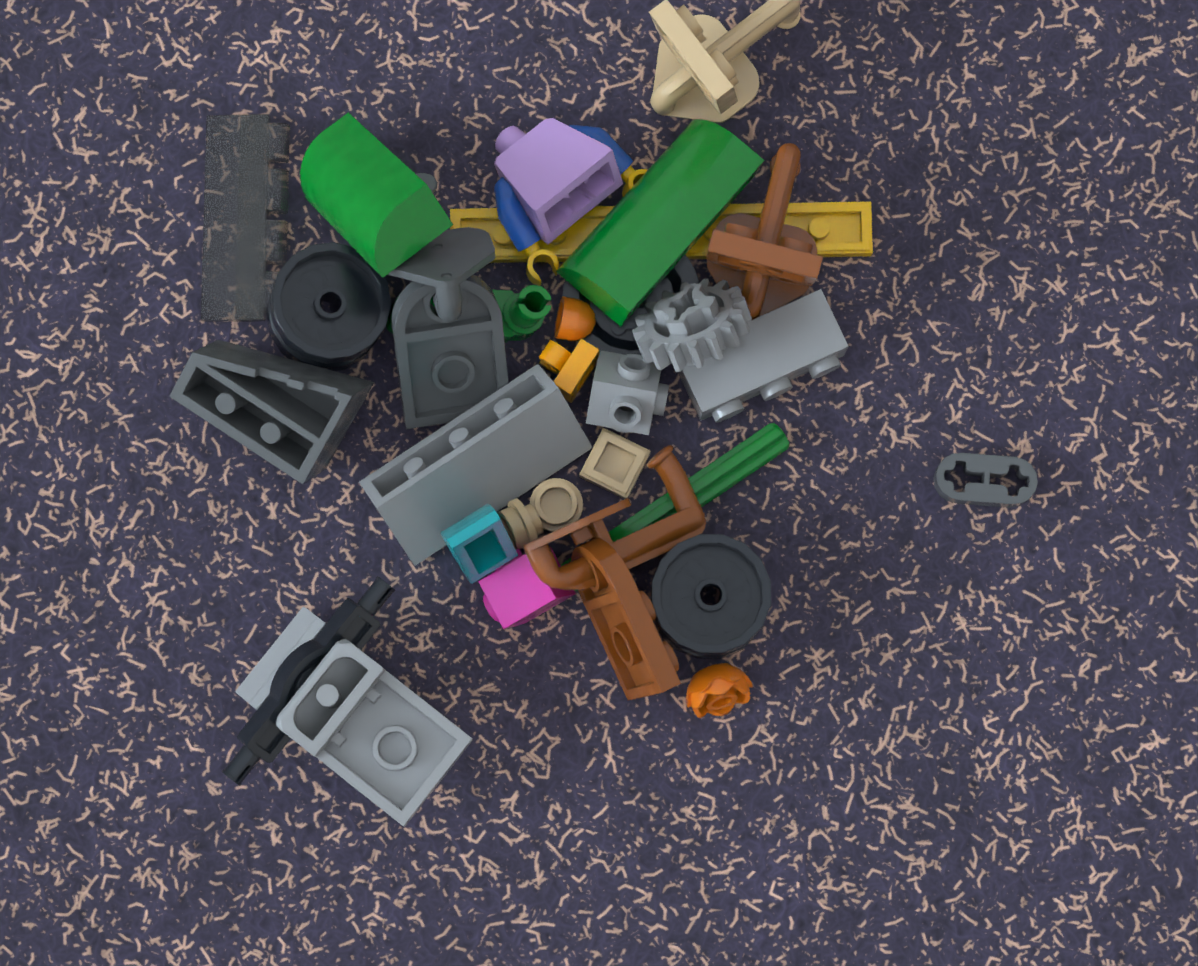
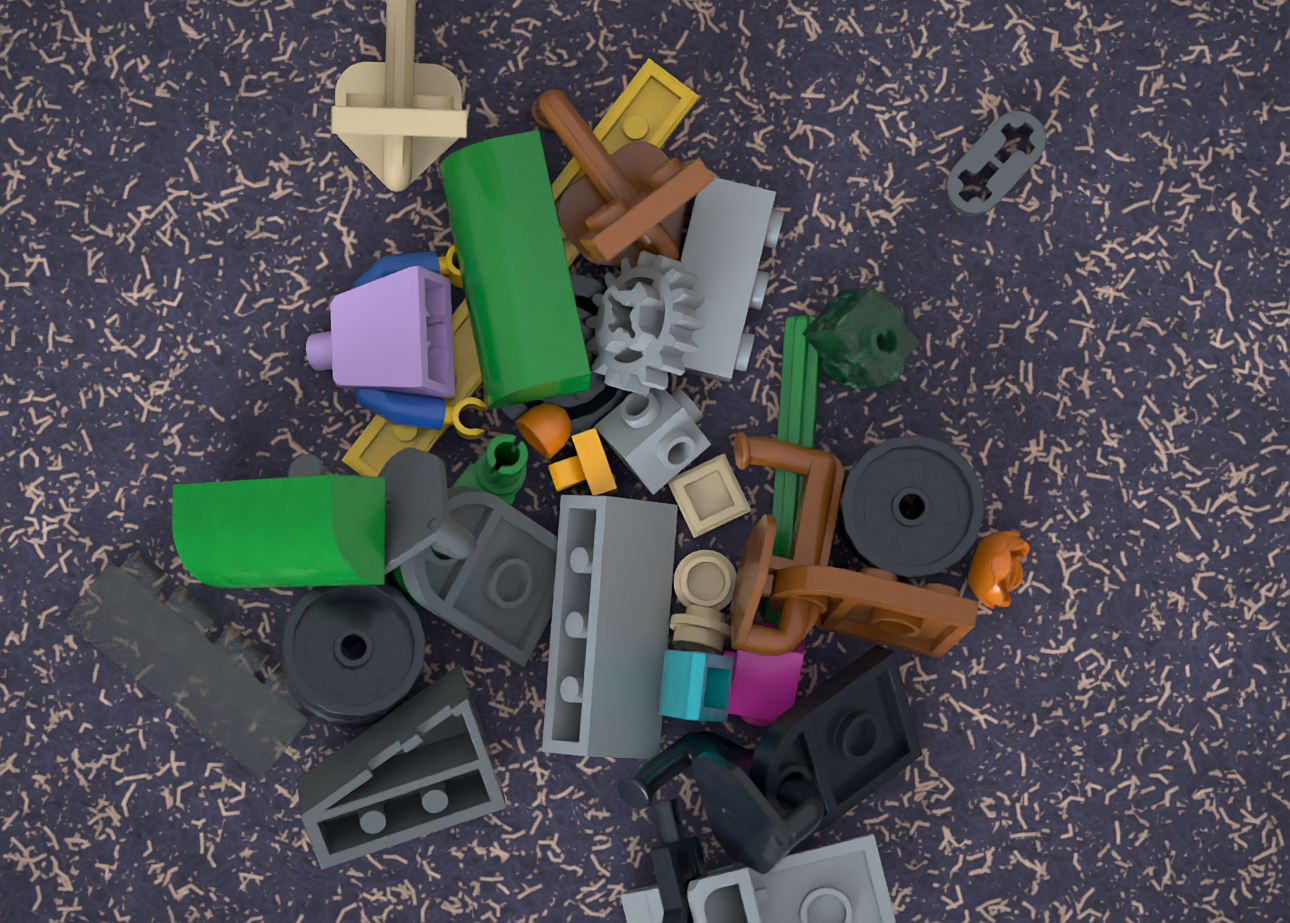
camera: 55 degrees left, 5 degrees up
(483, 655) = (805, 769): none -> black plate
(797, 480) = (862, 339): none -> clear green brick

